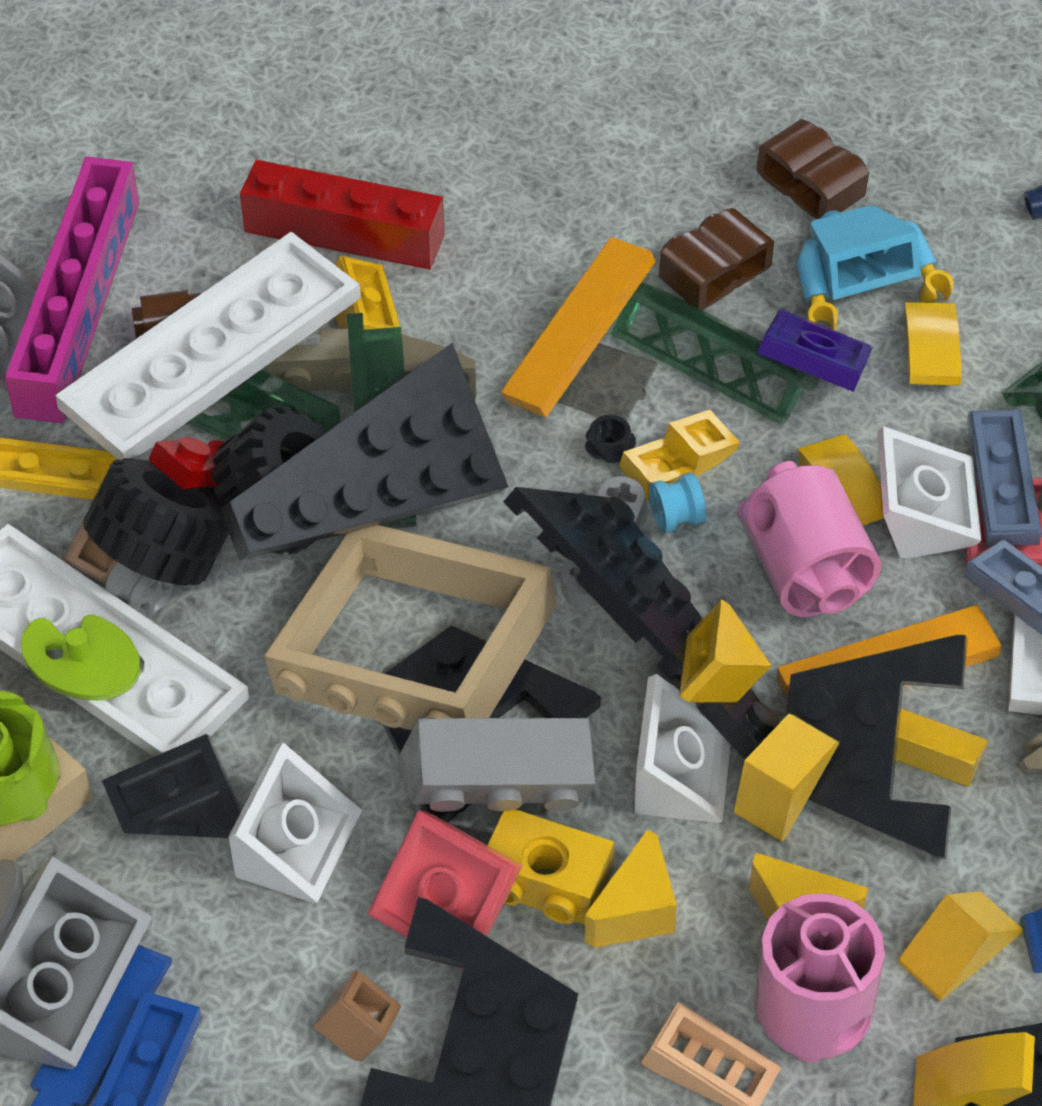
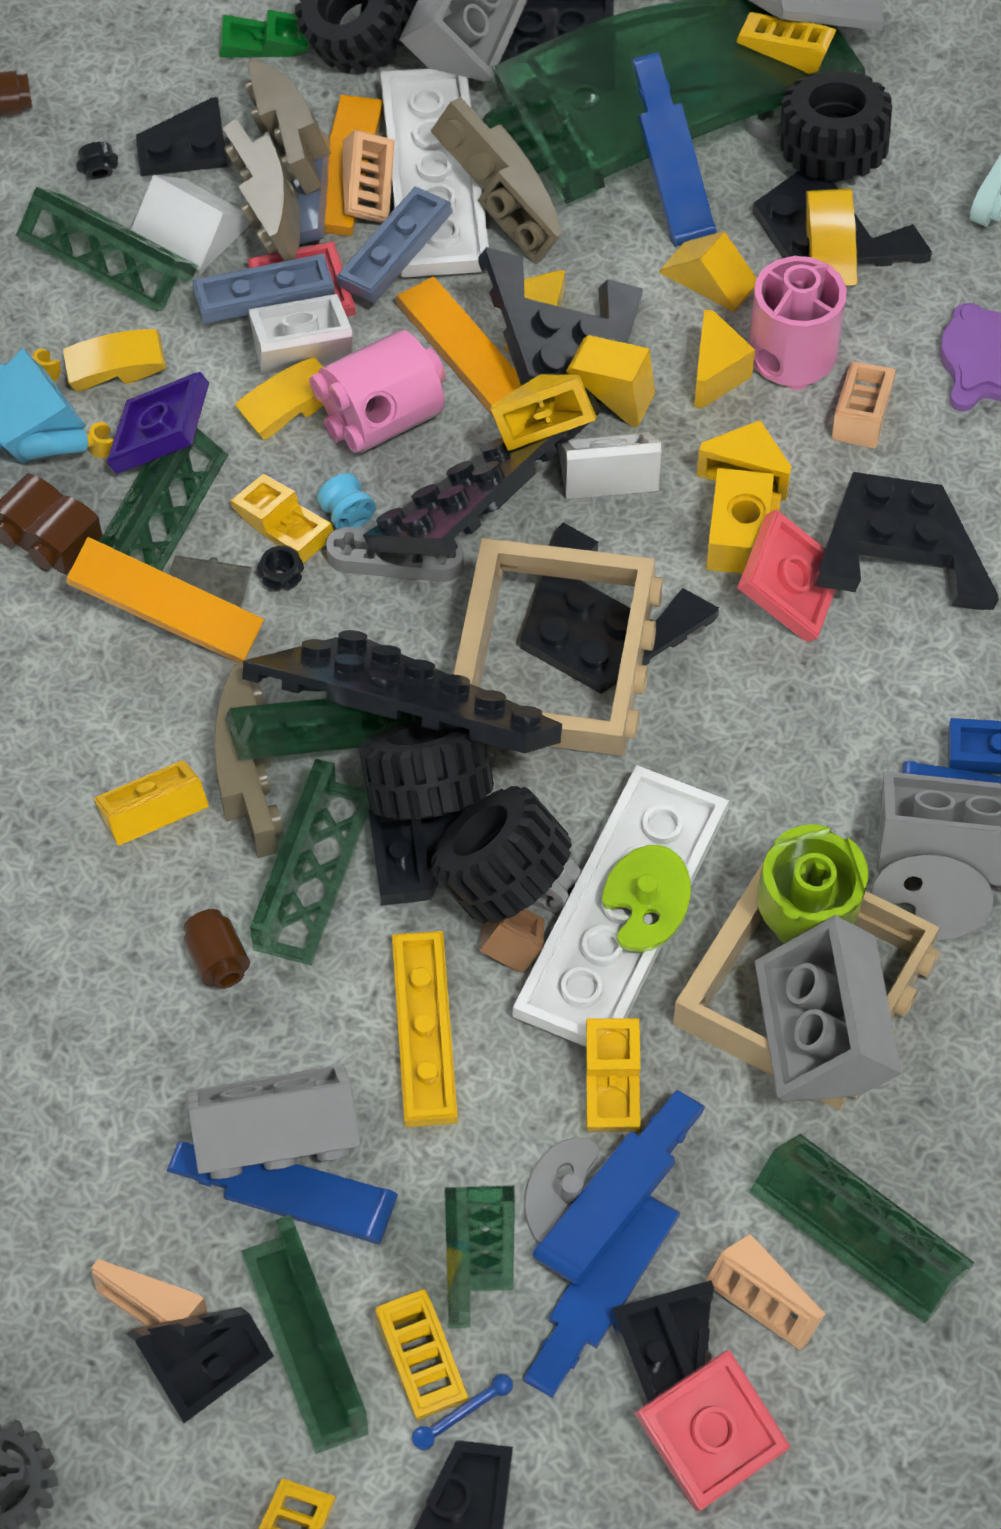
camera: 105 degrees left, 5 degrees up
(72, 288) = (203, 1034): dark pink brick -> none
(176, 794) = (758, 789): black wing -> none
(186, 461) = (427, 843): red plate -> none
(208, 347) = (283, 867): white plate -> none
(291, 828) = (764, 706): white slope -> none
(343, 214) = (49, 831): red brick -> none
(357, 1016) = (909, 622): medium nougat slope -> none
(498, 762) = (690, 543): light grey slope -> none

